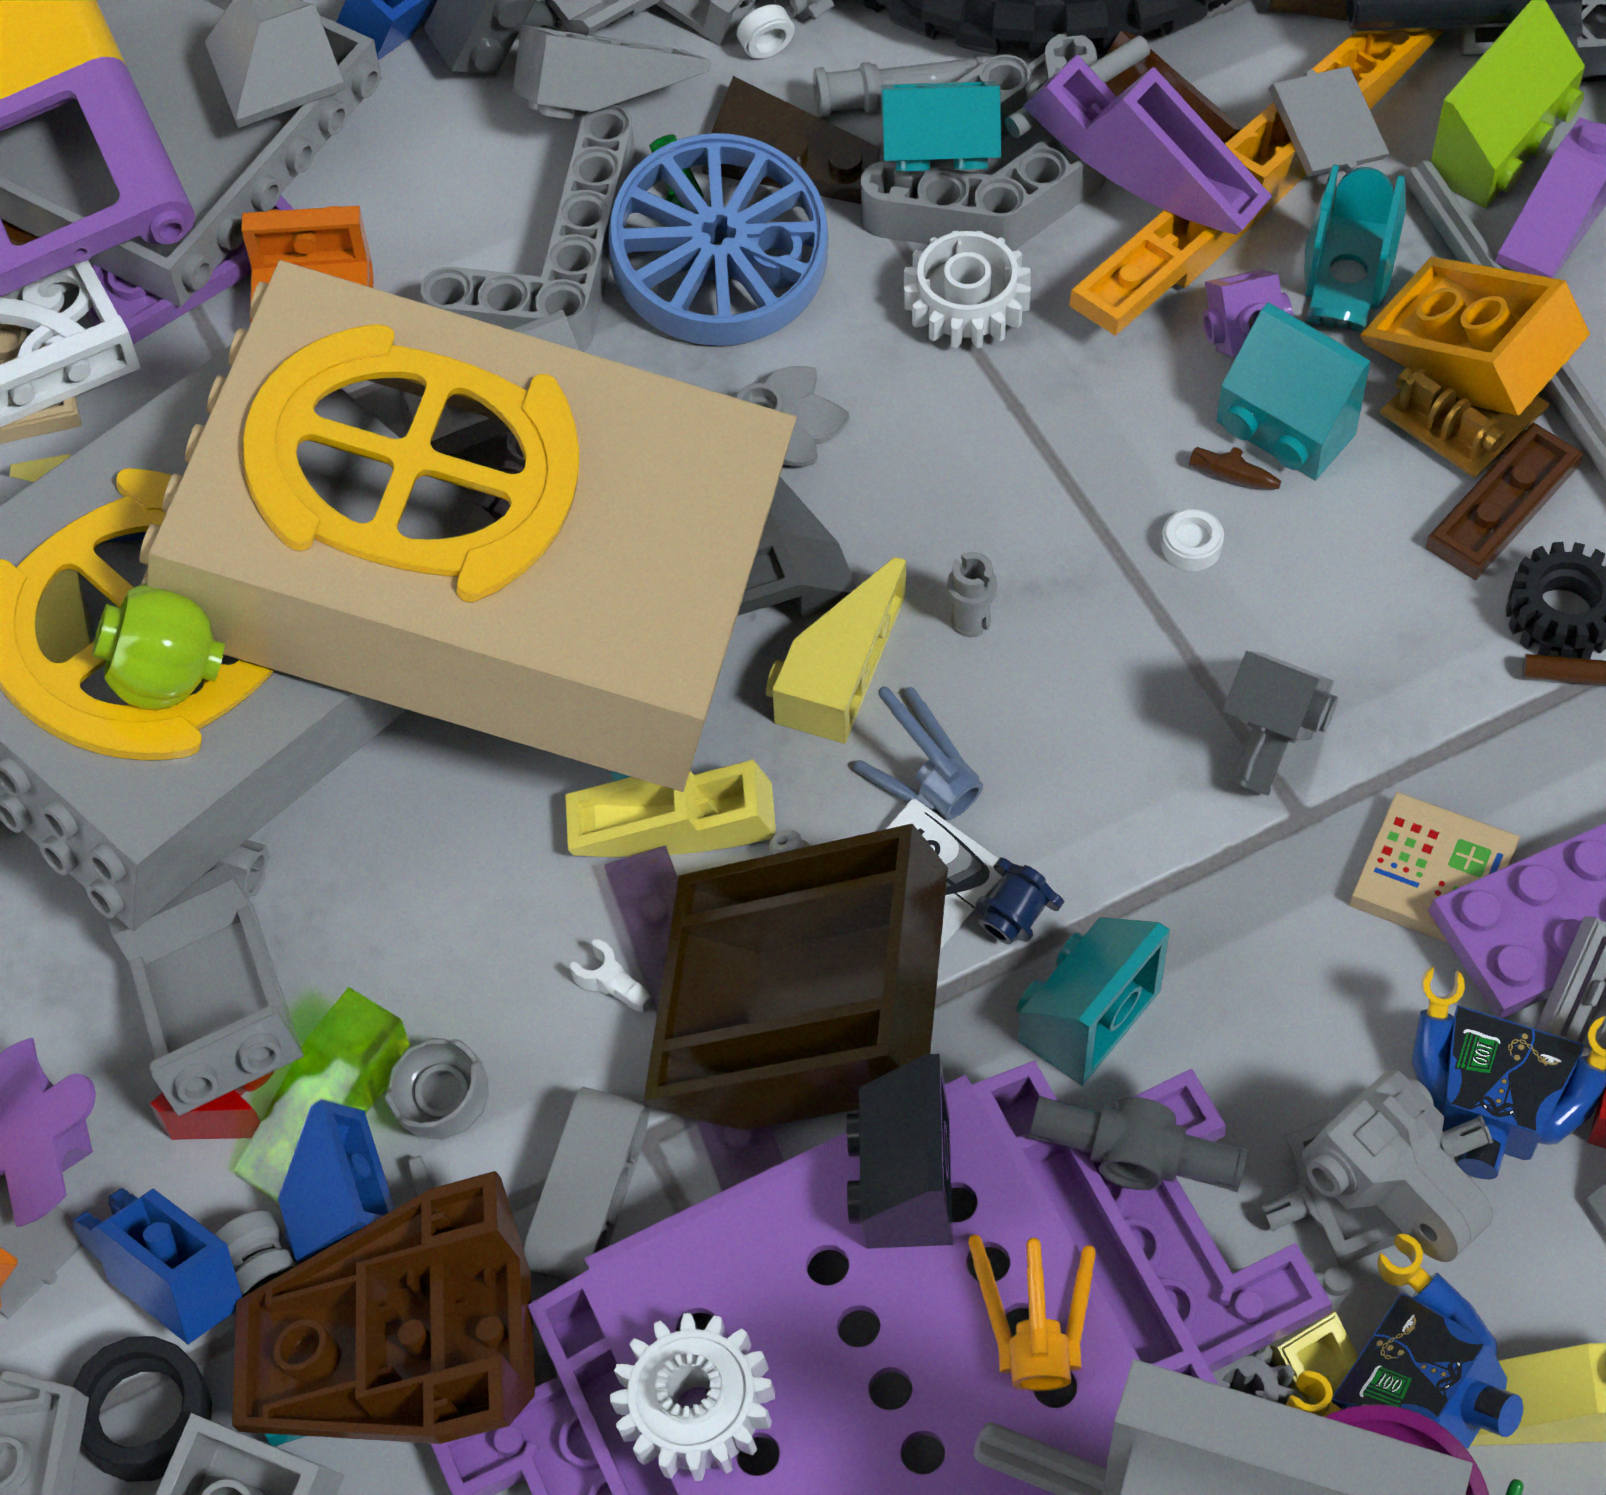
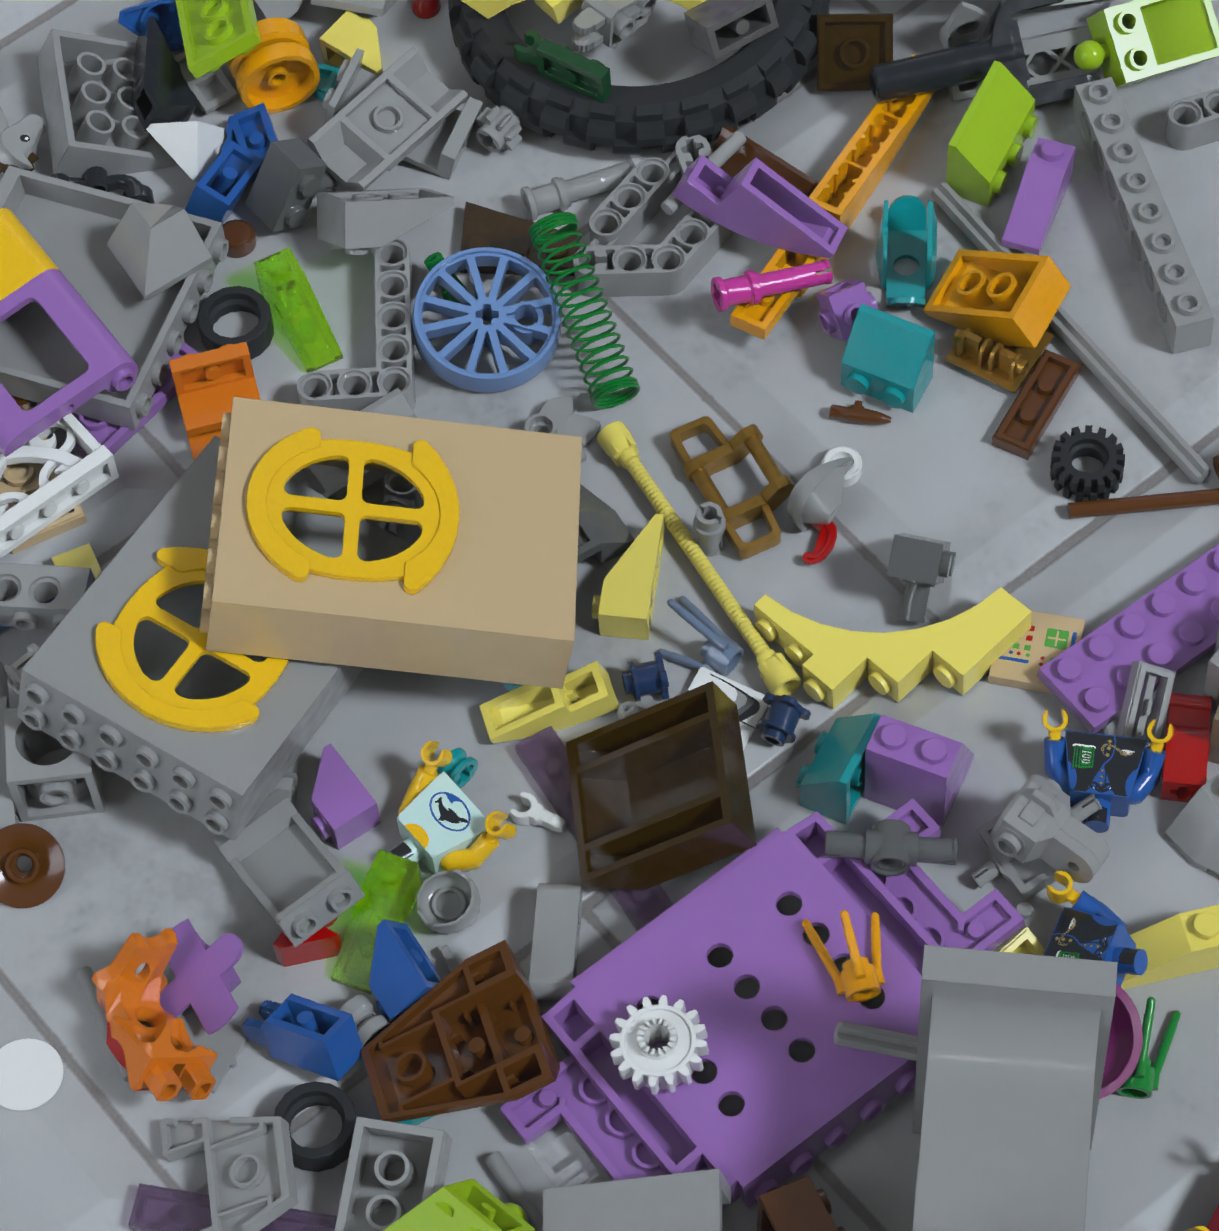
camera: 10 degrees left, 0 degrees up
(156, 647) = (219, 658): lime plant -> none
(318, 901) = (341, 801): none -> medium lavender slope
(369, 154) = (234, 300): none -> black tyre
(403, 74) = (240, 238): none -> reddish brown piece
(456, 181) = (297, 309): none -> clear neon green slope
(461, 961) = (443, 823): none -> torso
(507, 884) = (461, 768): none -> teal bush
(765, 31) = (480, 166): white tile -> none
(824, 801) = (646, 678): none -> dark blue brick
(869, 384) = (599, 396): none -> green piece
(903, 1158) = (754, 881): black slope -> none
(941, 123) = (619, 215): teal slope -> none
(967, 287) = (659, 323): white gear -> none
(1024, 827) = (775, 670): none -> light yellow hose
(1026, 492) = (726, 455): none -> pearl gold bar
(1113, 254) = (753, 286): none -> dark pink pin
(1139, 583) = (816, 502): none -> light grey piece
(1205, 1016) = (914, 764): none -> medium lavender slope
(1212, 847) = (897, 661): none -> light yellow arch
(1328, 121) = (874, 168): light grey piece -> none

